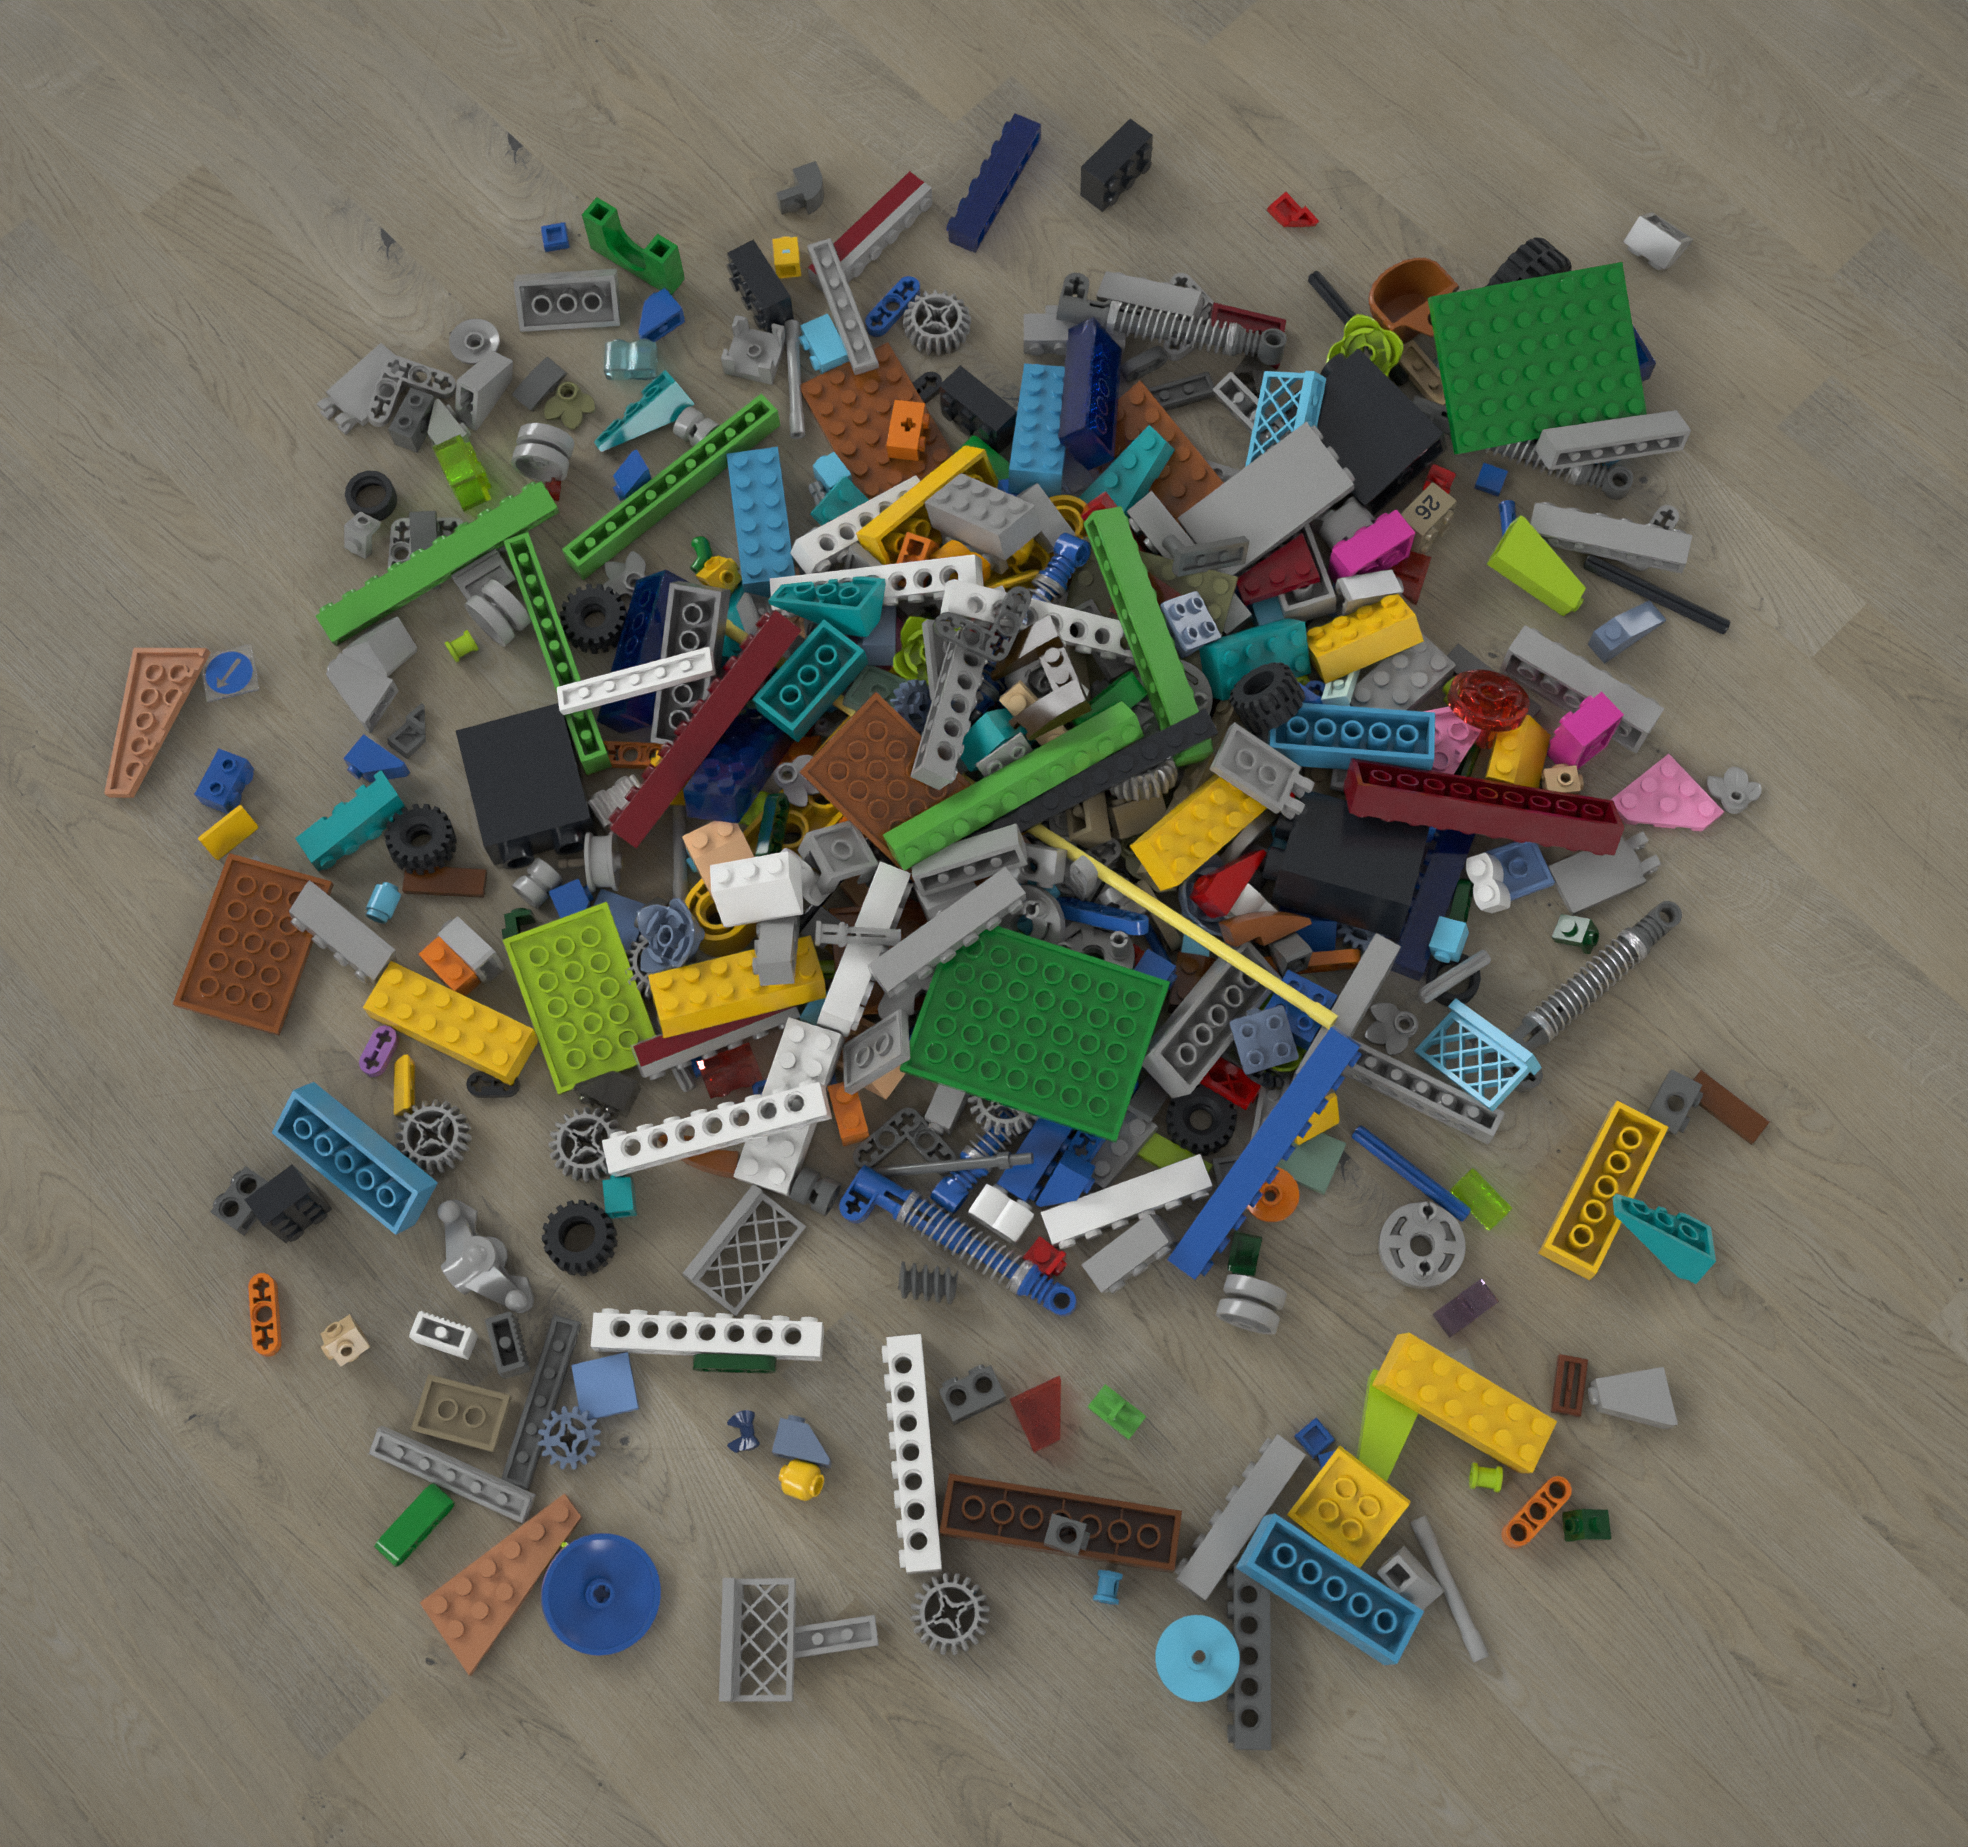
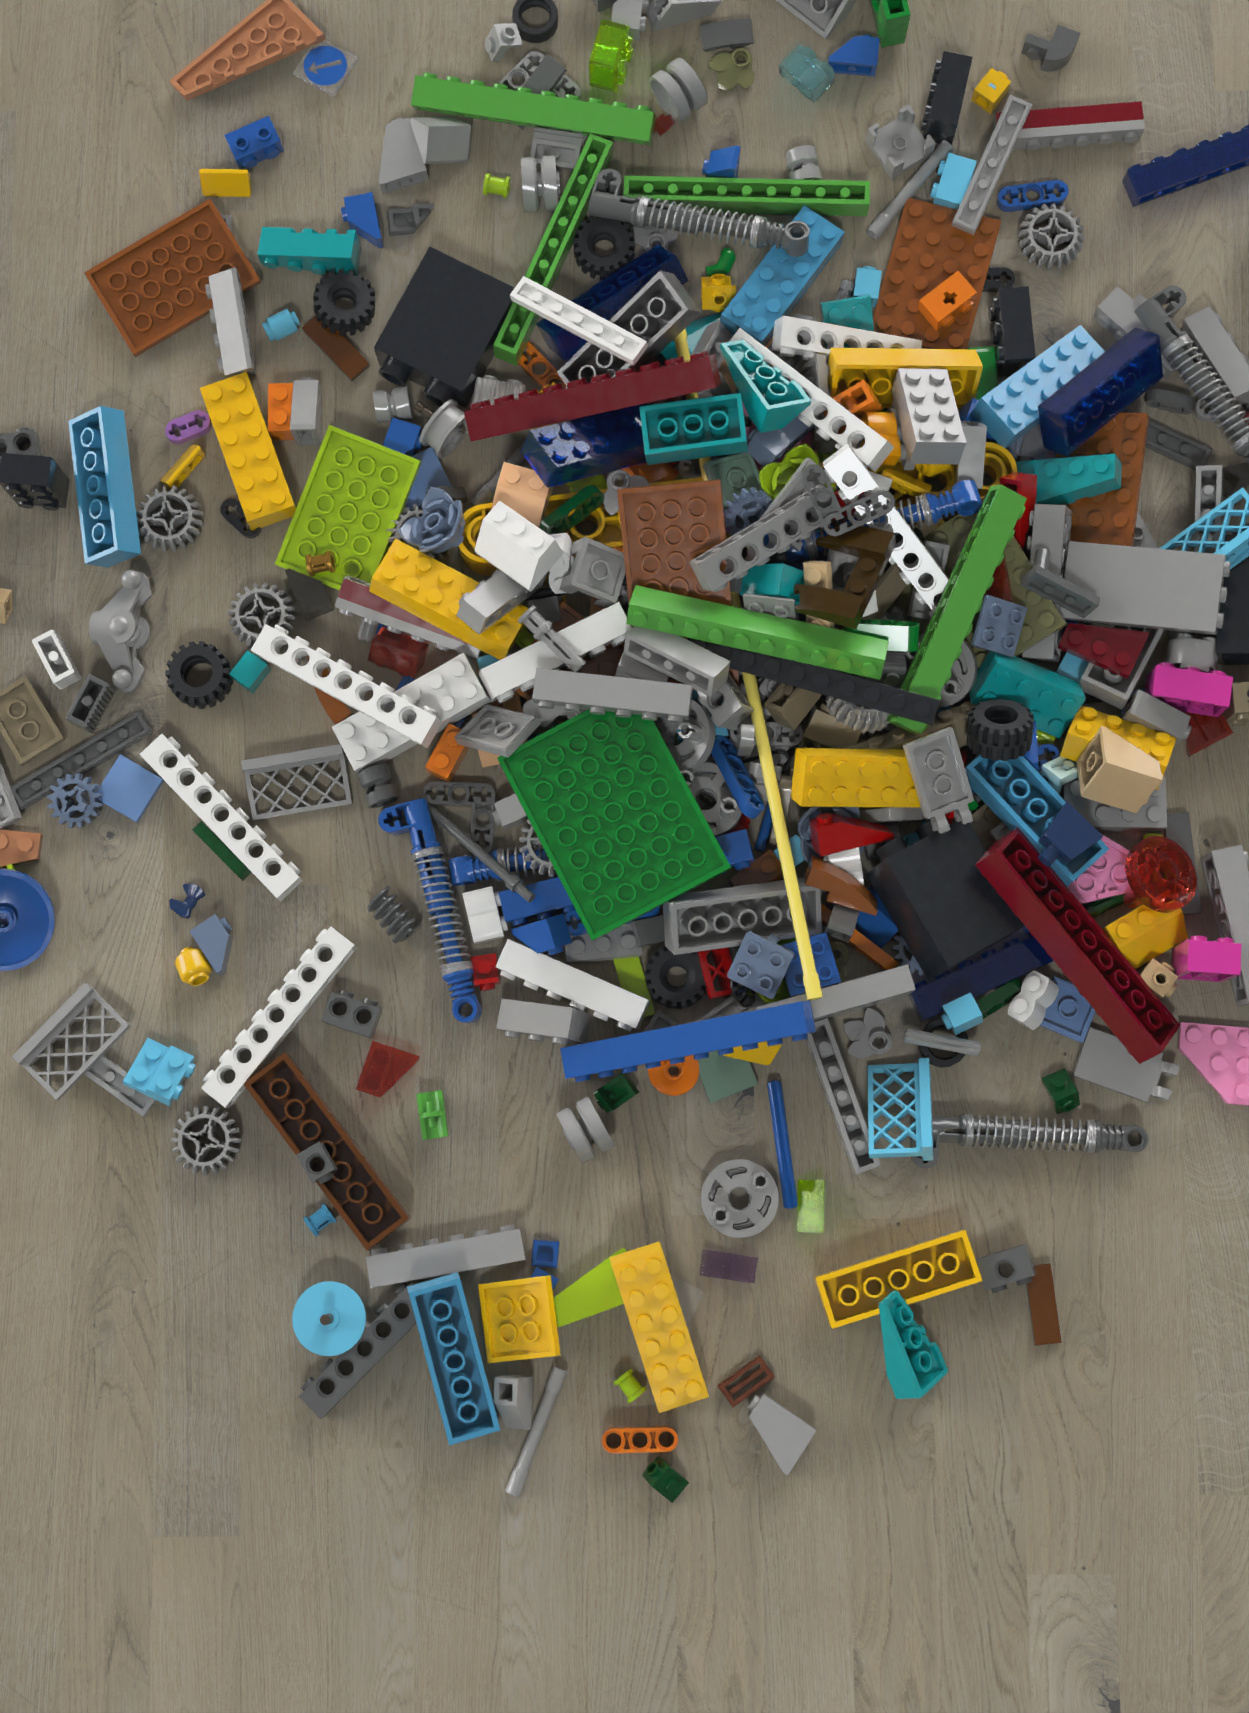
camera: 45 degrees right, 10 degrees up
(515, 919) = (352, 418): dark green bracket -> none
(598, 1056) = (320, 563): none -> pearl gold bush
(606, 560) = (651, 213): none -> dark grey piece
(659, 406) = (789, 127): teal wedge -> none
(857, 1593) = (160, 1071): none -> medium azure plate
(1383, 651) = (1117, 772): none -> tan slope
(1397, 728) = (1067, 837): none -> dark blue torso

